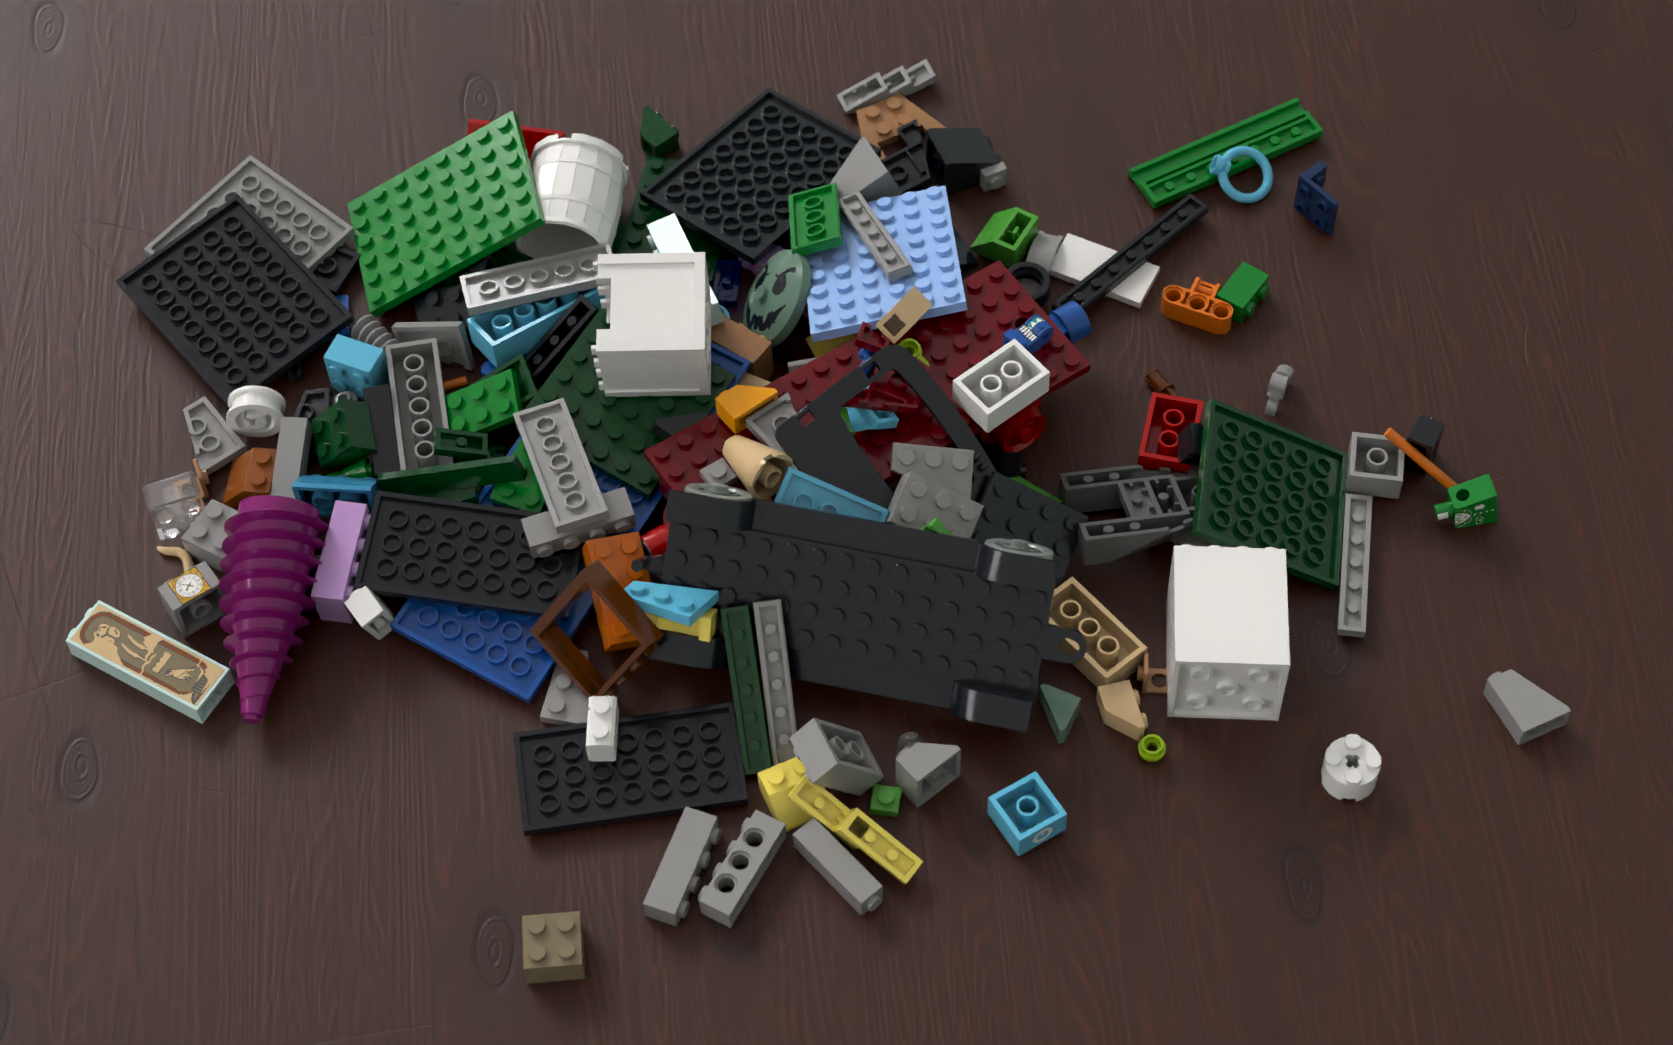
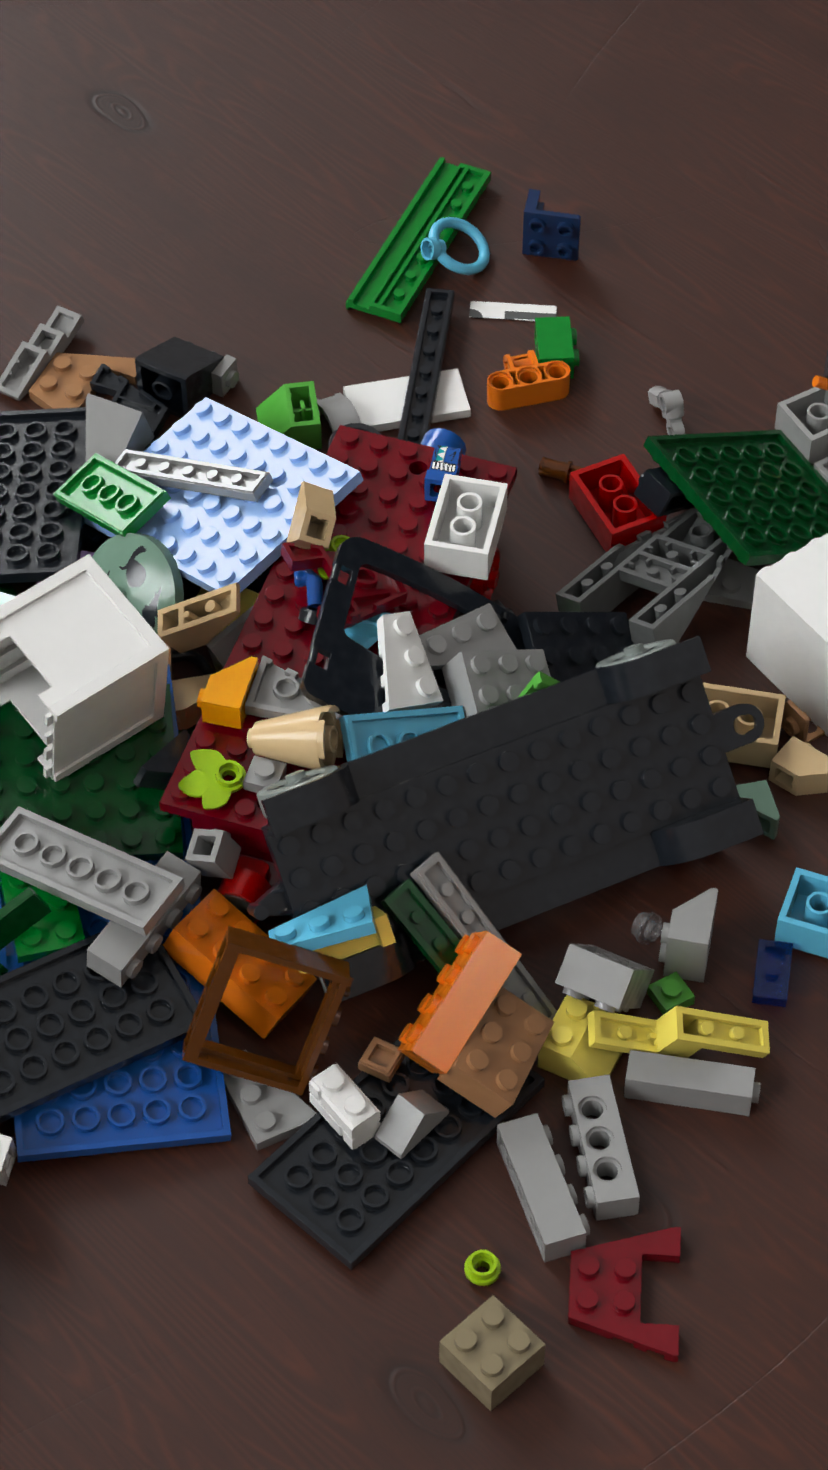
camera: 40 degrees left, 5 degrees down
(601, 884) = (478, 1259): none -> lime plate
(637, 765) = (409, 1121): none -> light grey slope
(650, 506) = (213, 853): none -> light grey brick
(657, 715) = (381, 1059): none -> medium nougat tile
(665, 960) = (608, 1290): none -> dark red wing
(682, 455) = (208, 778): none -> lime plate
(716, 709) = (458, 1001): none -> orange brick
(722, 757) = (499, 1054): none -> medium nougat brick
(785, 340) = (199, 618): none -> tan slope
(868, 459) = (406, 669): none -> white wing
(963, 832) = (772, 973): none -> clear blue plate
(1244, 247) = (510, 311): none -> white sticker

